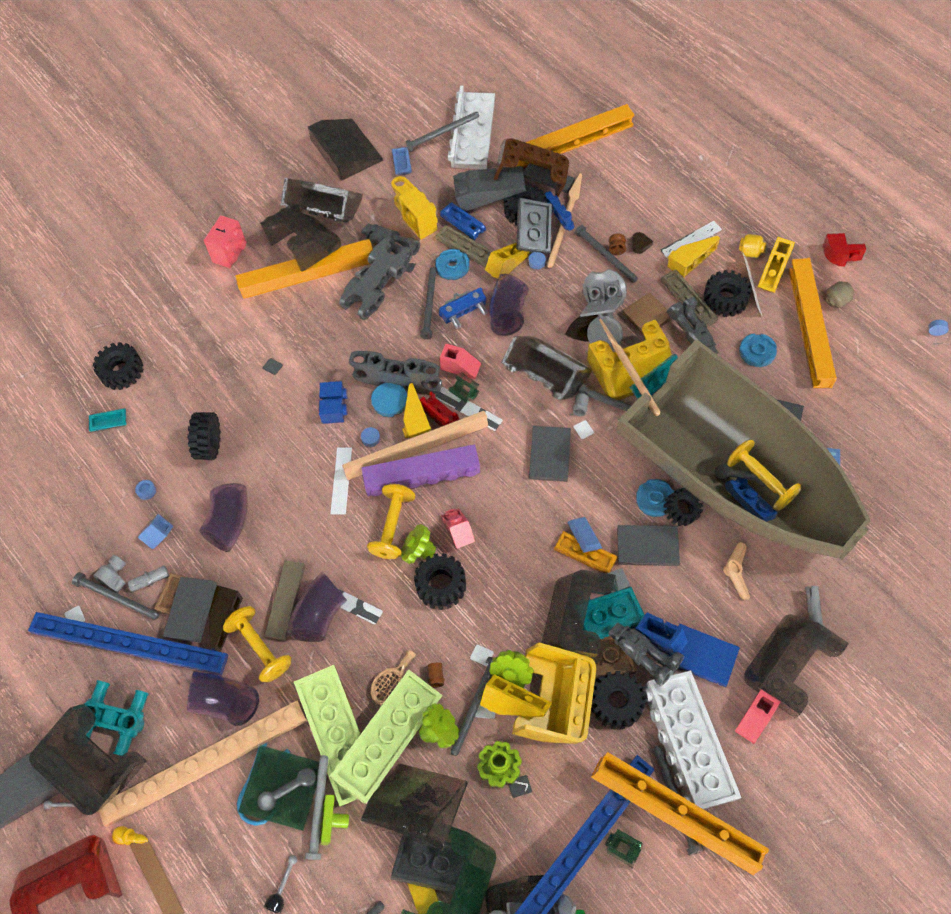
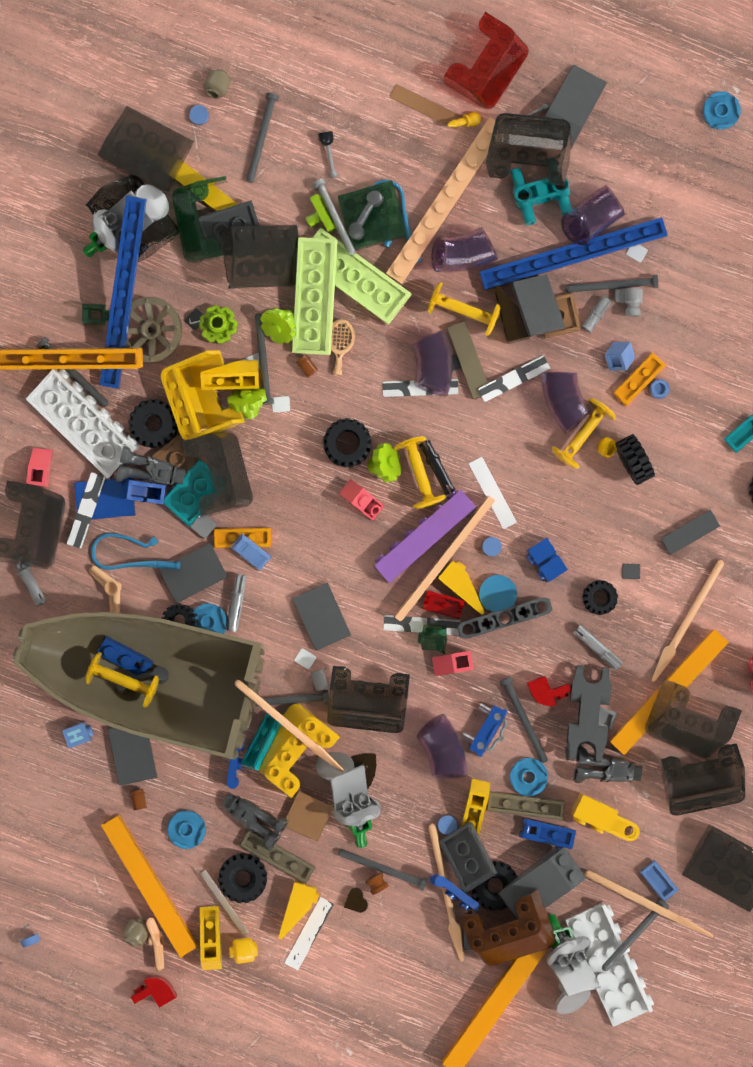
camera: 145 degrees right, 25 degrees up
(82, 663) = (592, 216): none -> clear purple brick
(155, 505) = (639, 379): none -> light orange tile
(205, 370) = (690, 532): none -> dark grey tile
(220, 463) = (606, 447): none -> yellow tile
(239, 477) = (583, 433): none -> yellow hose
(257, 562) = (514, 378): none -> sticker
(285, 296) = (669, 652): none -> light nougat piece
(306, 348) = (588, 597): none -> black tyre
(335, 318) = (600, 649): none -> light grey axle
(373, 516) = (434, 461): none -> black pin
(399, 309) = (543, 694): none -> red brick
(423, 151) = (645, 902): none -> light nougat piece
(501, 125) = (571, 968): none -> light grey piece
(572, 790) = (146, 325): none -> dark tan wheel
(620, 500) = (236, 603): none -> light grey axle
(674, 589) = (152, 542): none -> dark azure piece
(726, 652) = (86, 510): none -> sticker
(791, 388) = (138, 799): none -> dark orange piece
(823, 284) = (156, 940): none -> light nougat piece

